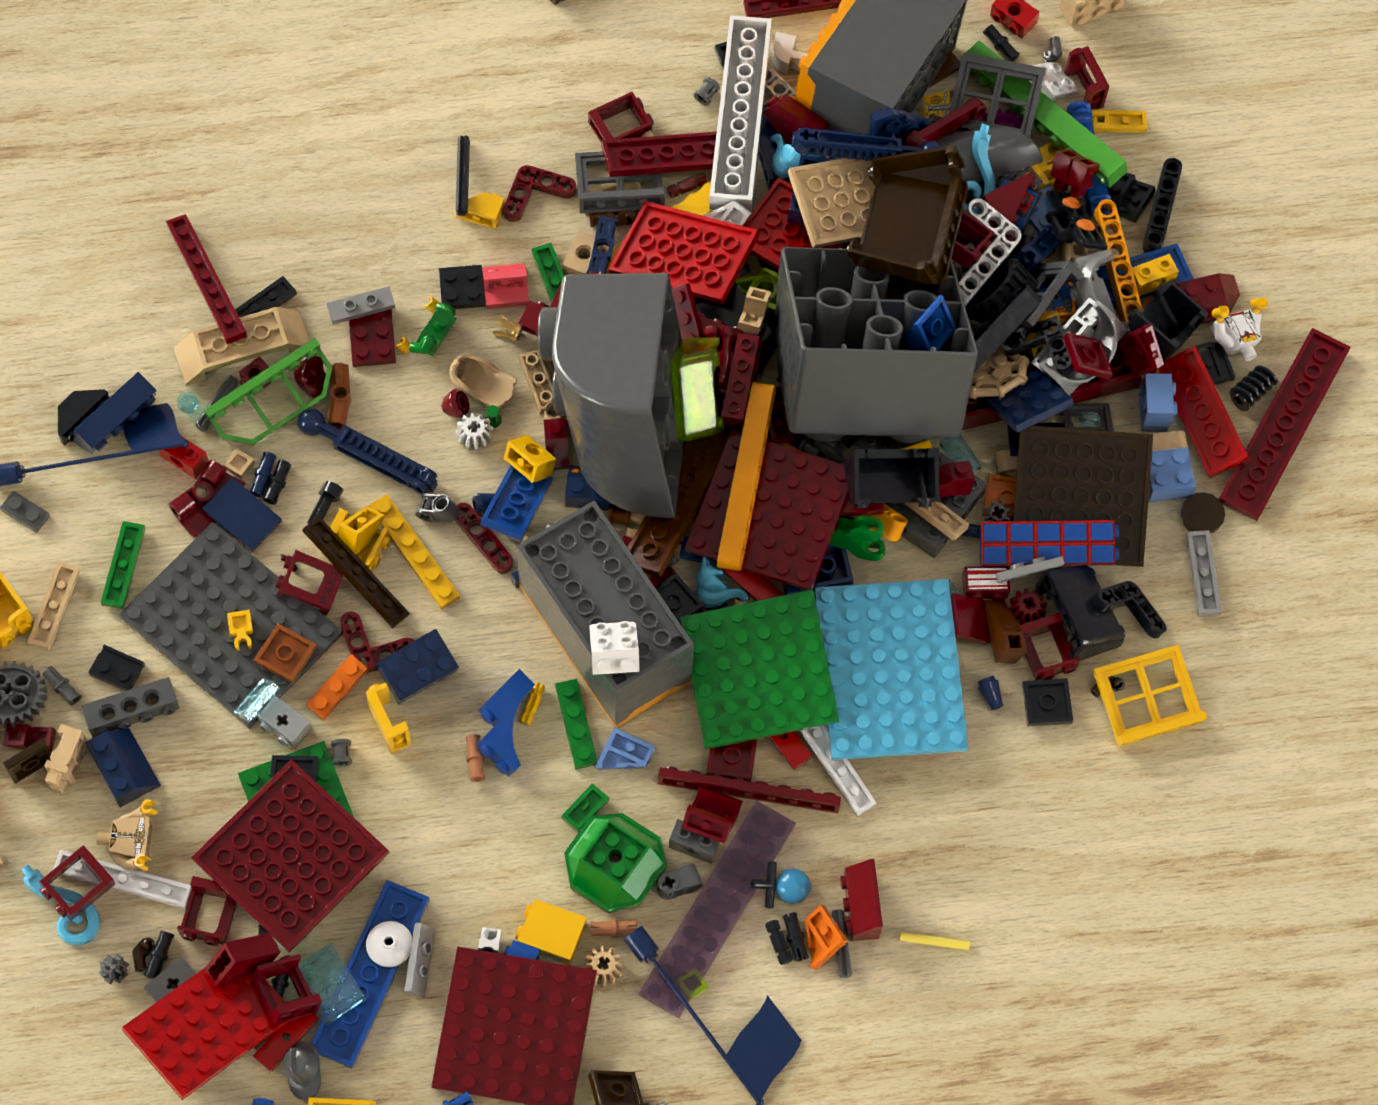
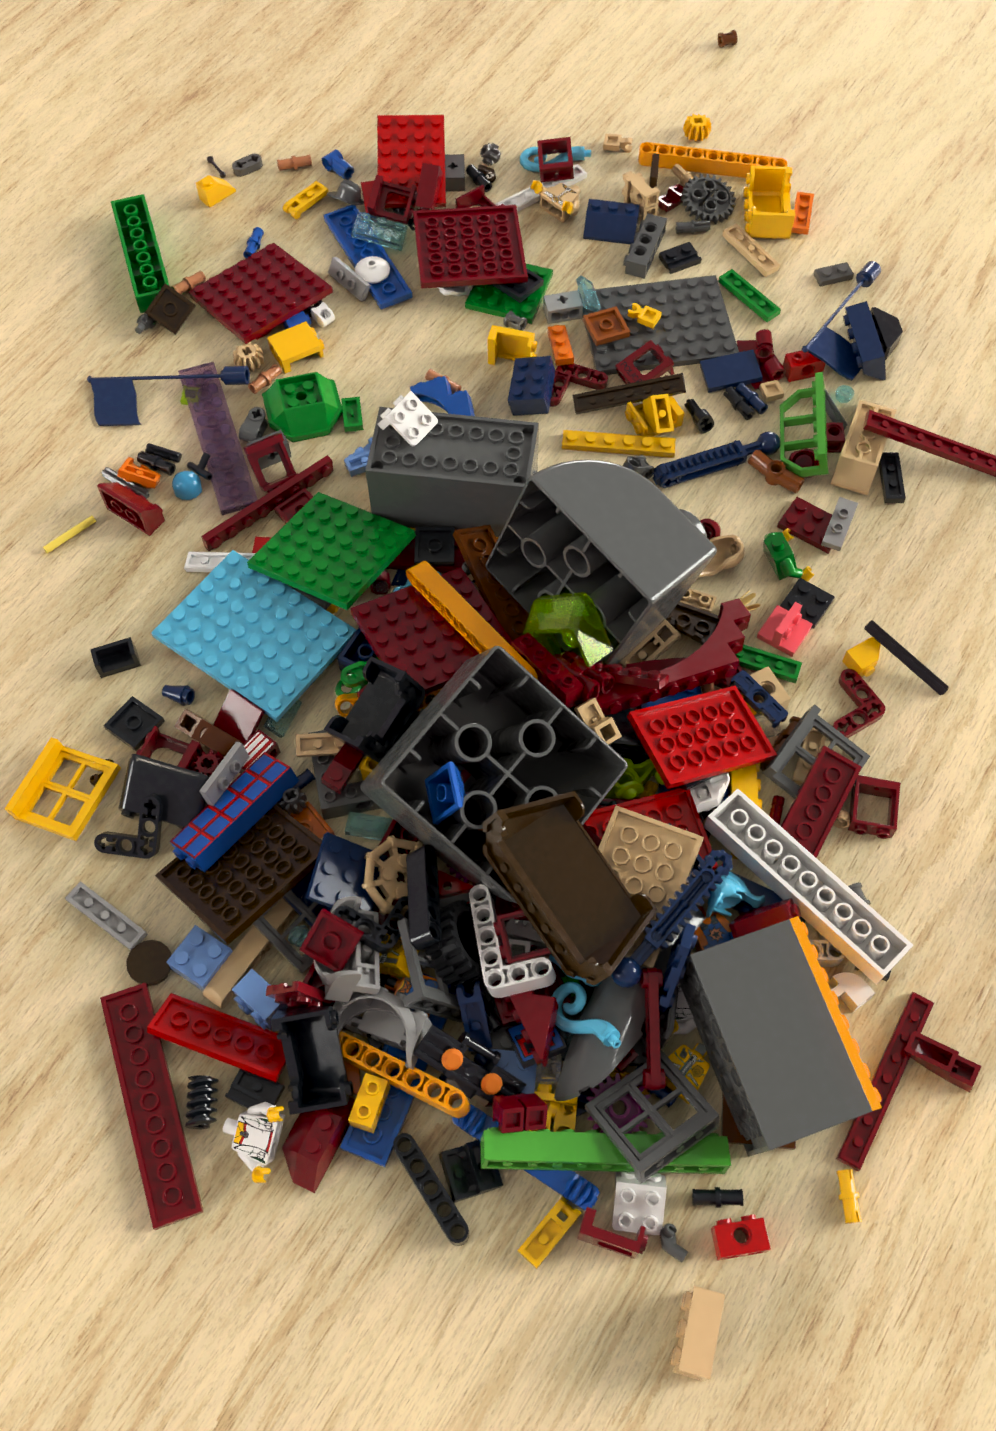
camera: 135 degrees right, 5 degrees down
(1008, 772) = (115, 657): none -> black panel

